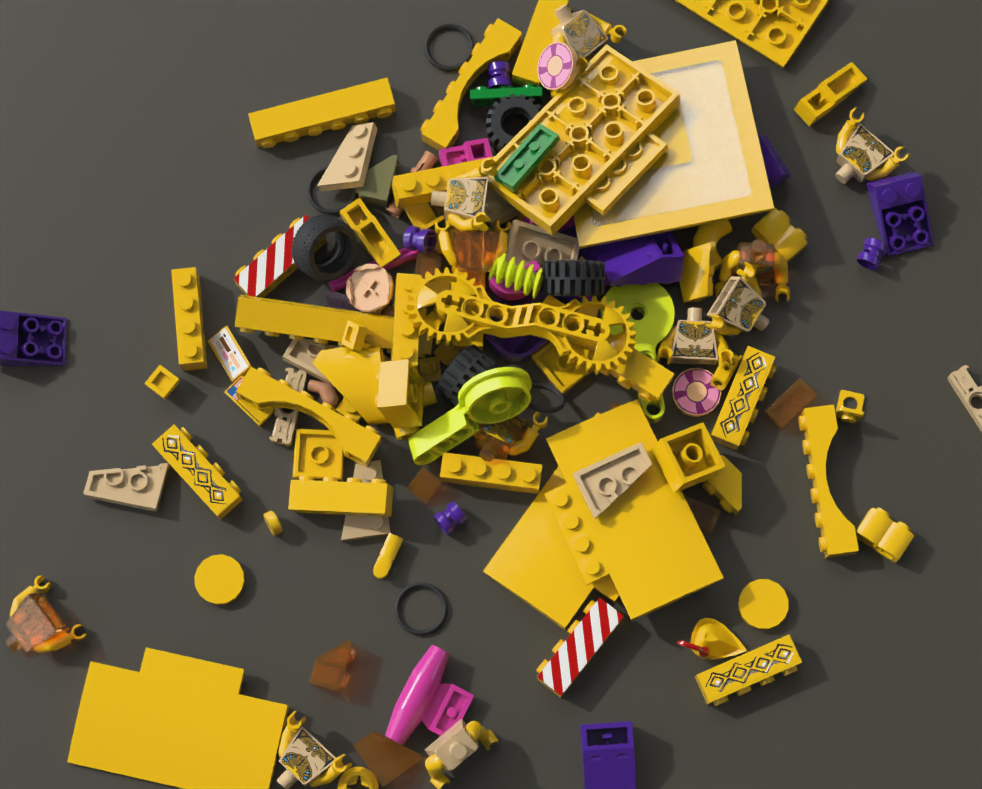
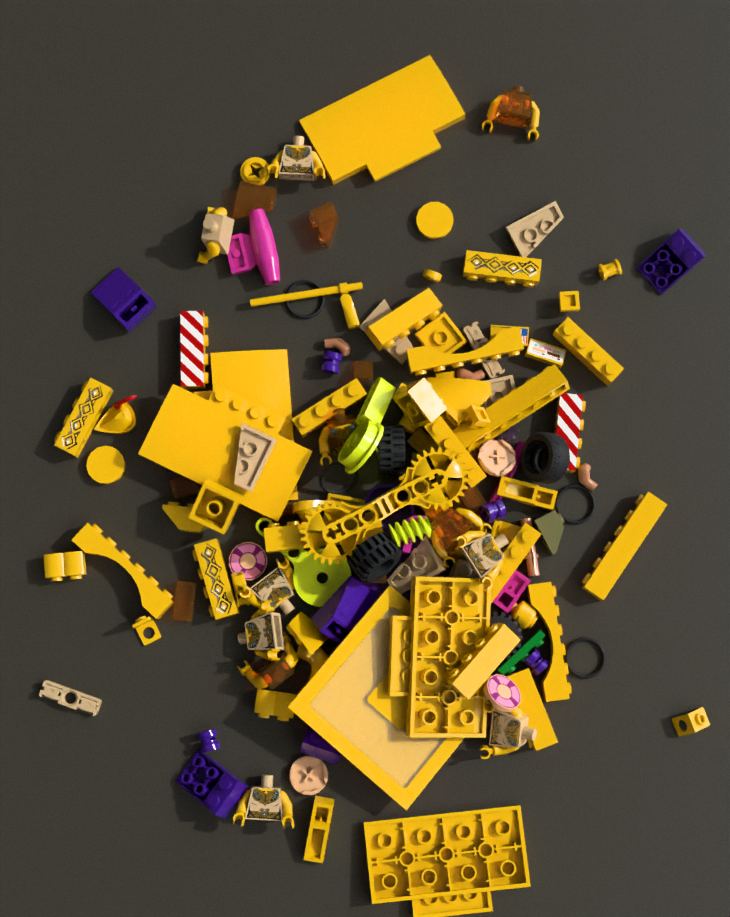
camera: 135 degrees right, 5 degrees up
(86, 376) = (610, 269): none -> yellow bush
(301, 206) = (584, 477): none -> nougat arm
(351, 160) = (579, 530): tan wing -> none
(374, 585) = (342, 288): none -> yellow bar
(425, 532) = (338, 343): none -> nougat arm
(472, 126) = (524, 614): none -> yellow head
(526, 157) = (468, 612): plate -> none
(551, 105) = (482, 660): none -> yellow brick
(598, 389) = (303, 507): none -> yellow piece
(801, 149) = (308, 775): none -> light nougat tile

